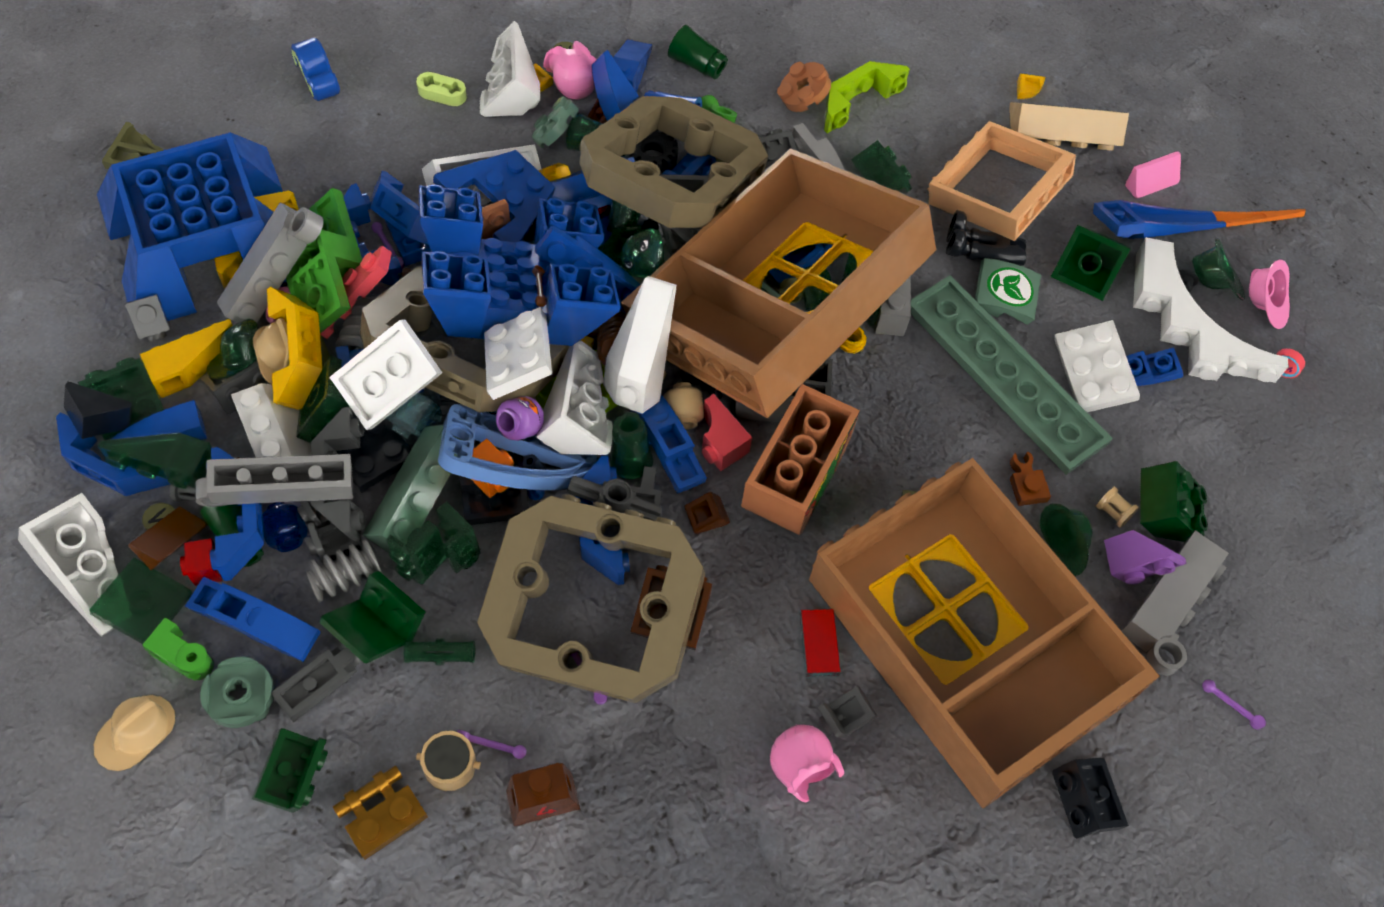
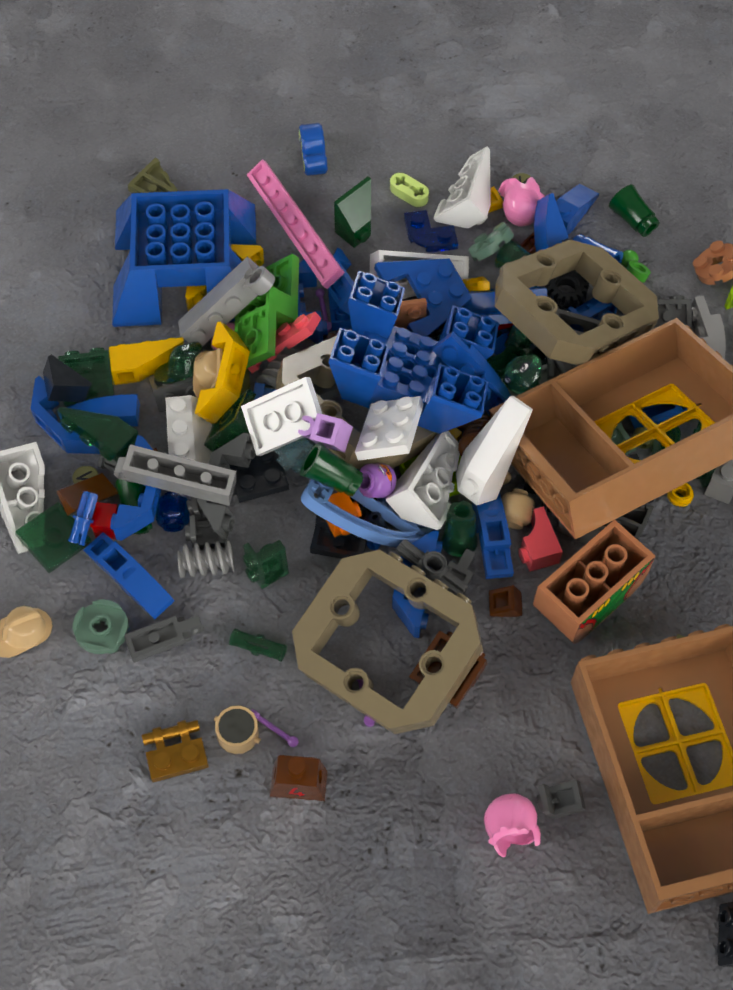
camera: 25 degrees right, 0 degrees up
(148, 317) = (124, 320): bracket -> none
(173, 567) = (83, 518): none -> blue axle
(186, 658) = (62, 578): bright green leg -> none
(290, 771) = (119, 697): dark green bracket -> none
(323, 156) = (295, 224): none -> bright pink tile
(377, 621) = (217, 606): dark green bracket -> none
(388, 128) = (353, 214): none -> slope
(411, 492) = (274, 516): sand green brick -> none
(446, 376) = (328, 430): none -> lavender brick
(460, 538) = (300, 566): clear green bracket -> none
(464, 420) = (331, 470): none -> dark green plant
(488, 135) = (432, 239): none -> clear blue plate
(541, 299) = (423, 390): reddish brown hinge -> none
(820, 643) = (560, 736): red tile -> none

